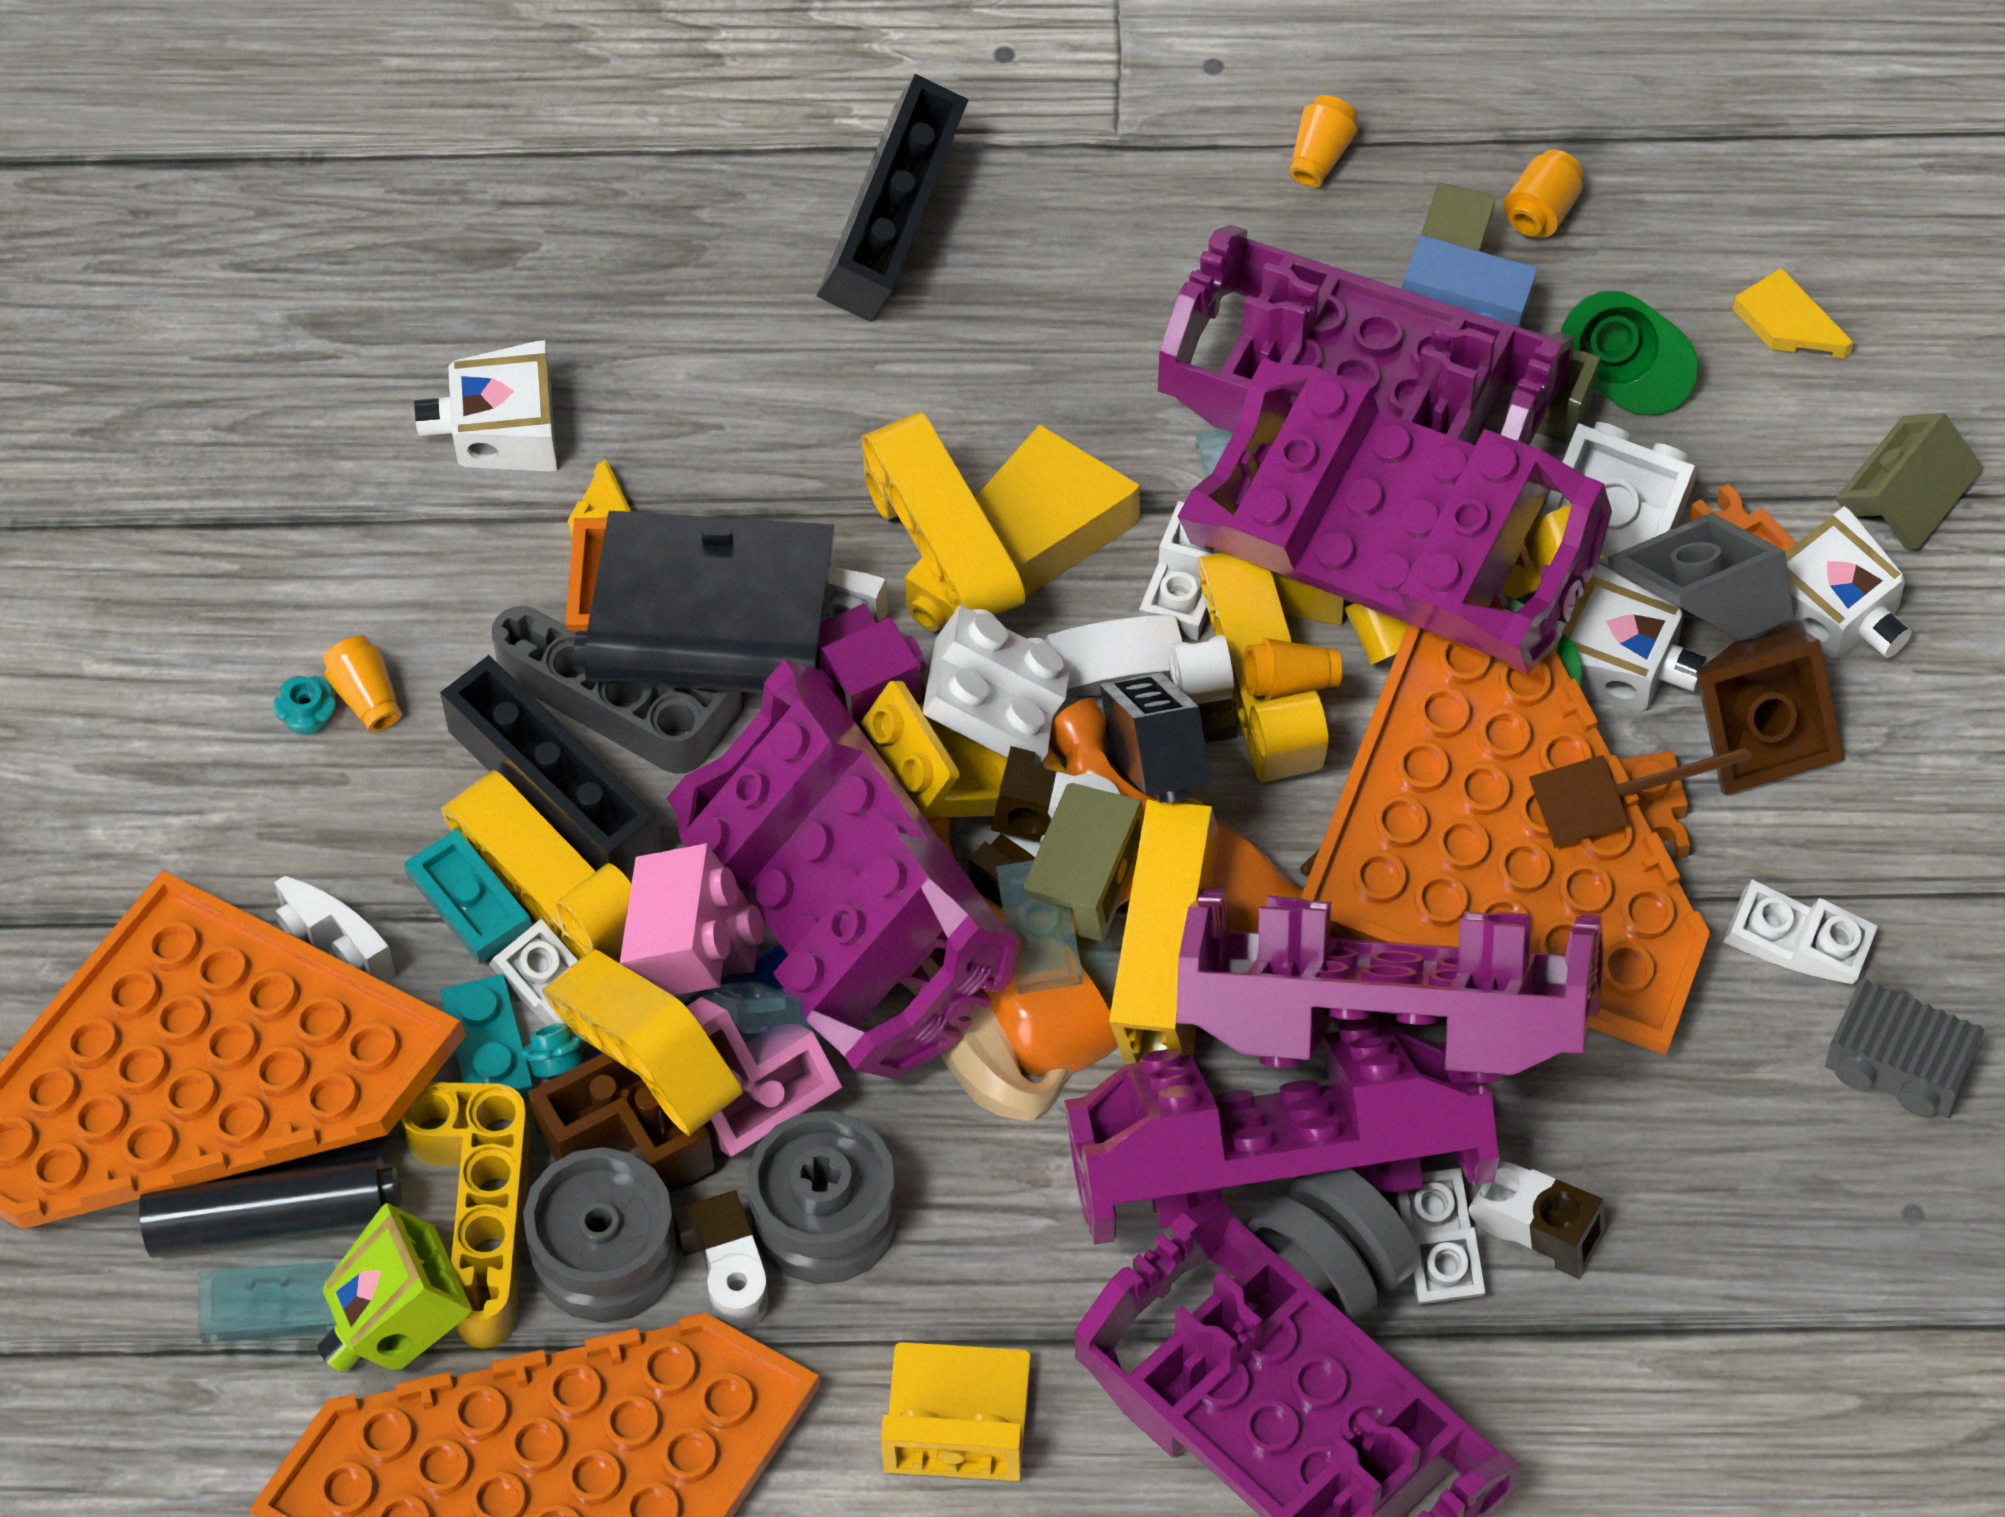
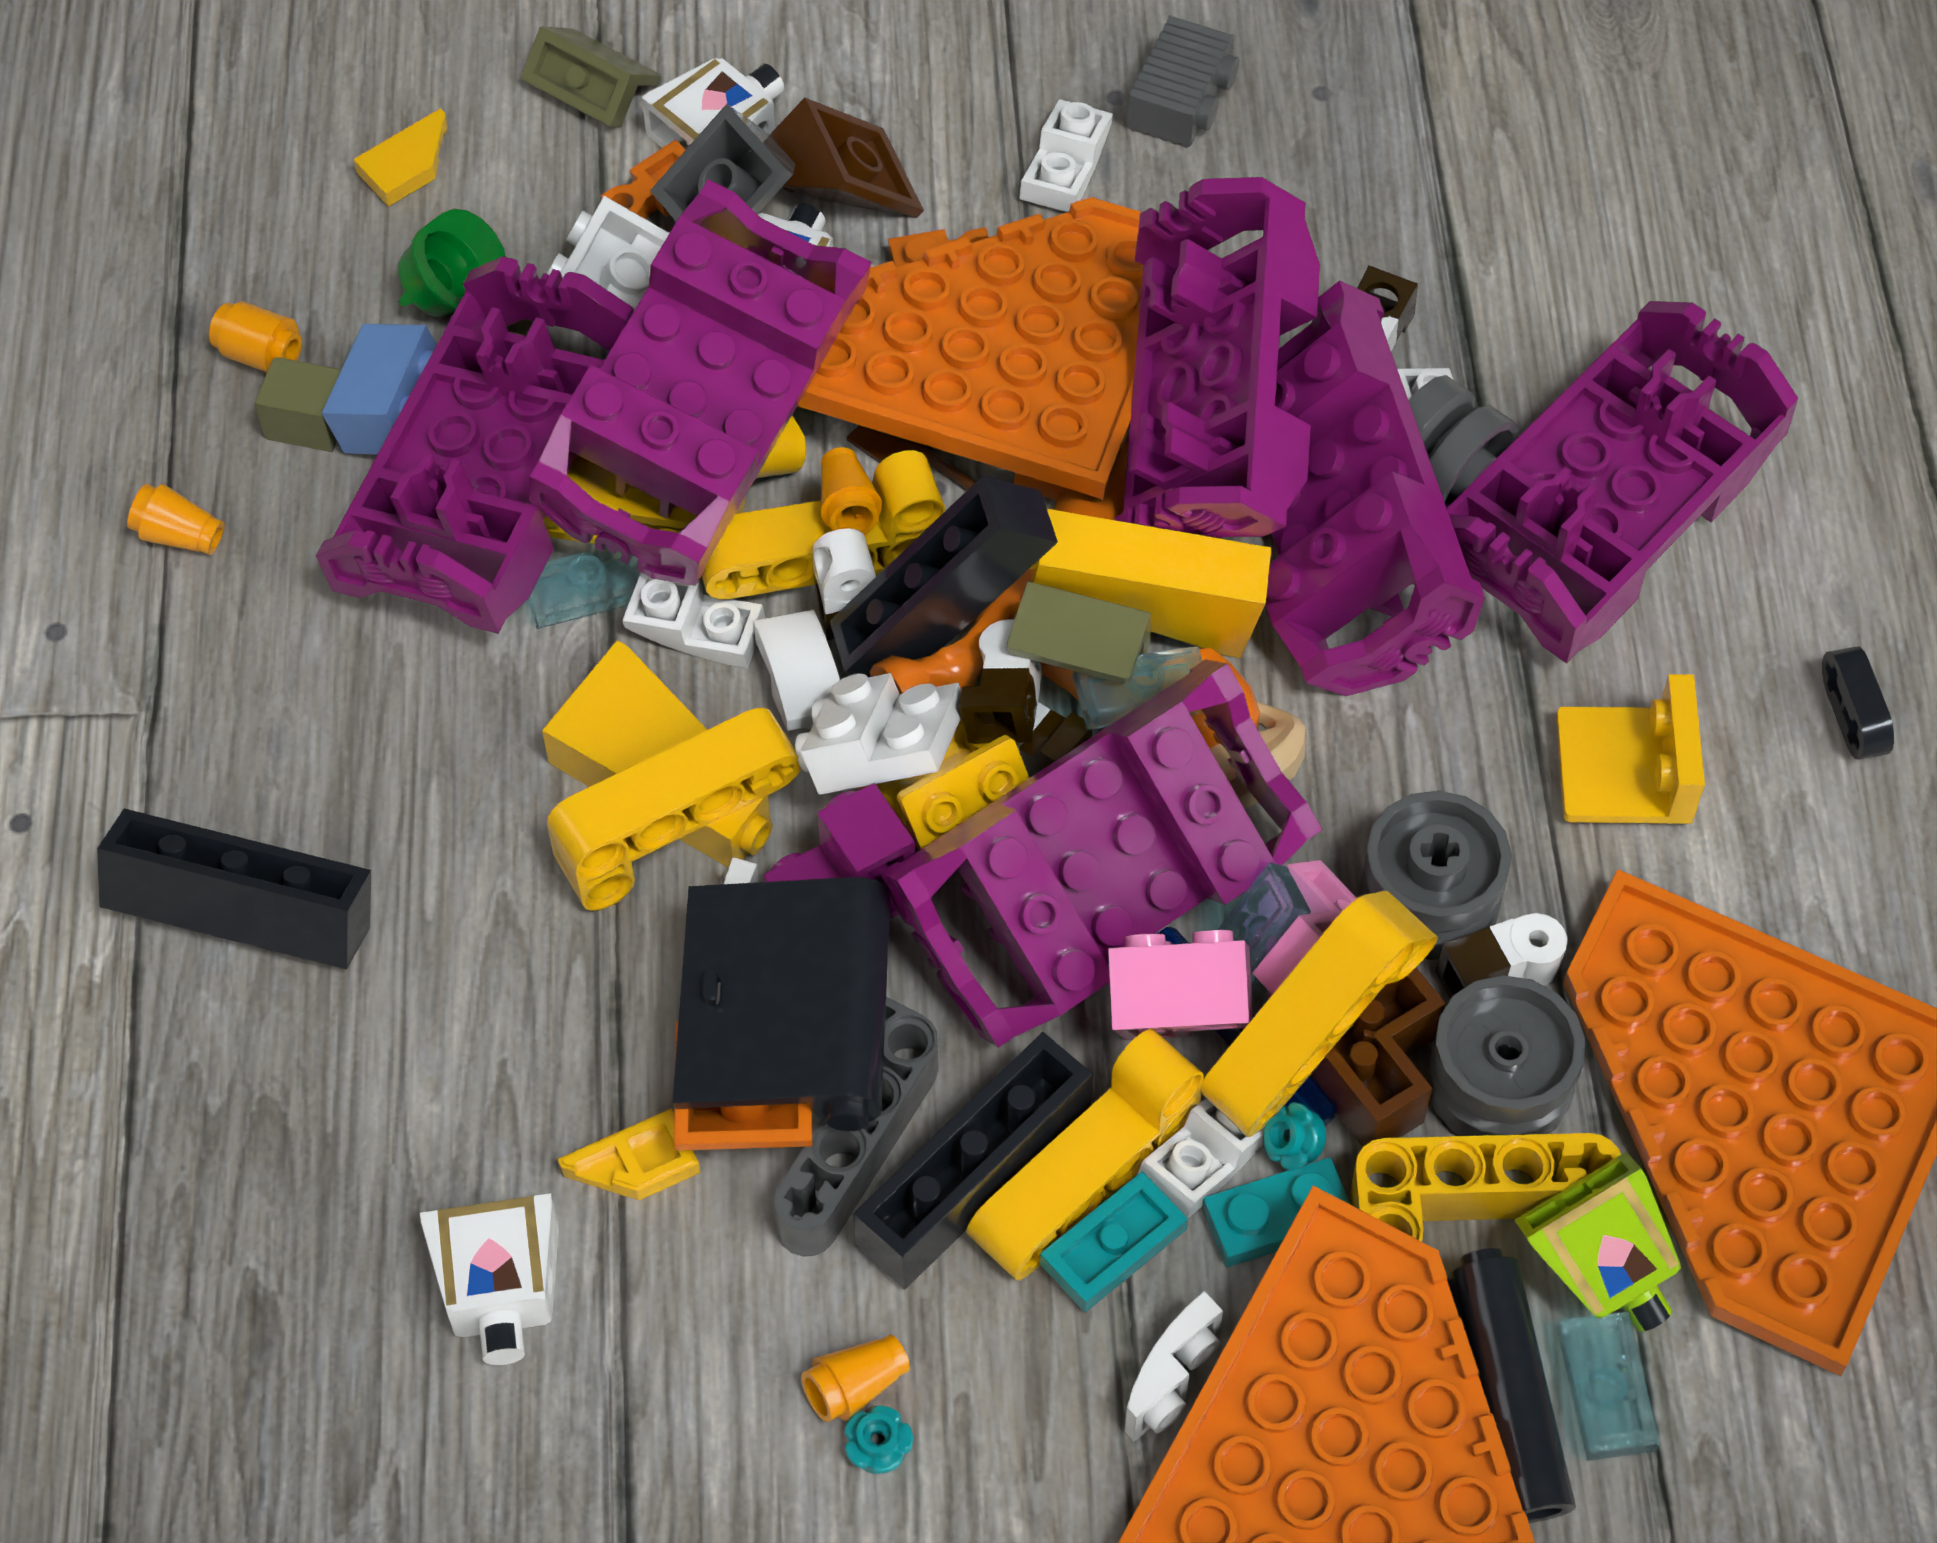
camera: 95 degrees left, 0 degrees up
(1584, 801) = (970, 272): reddish brown piece -> none

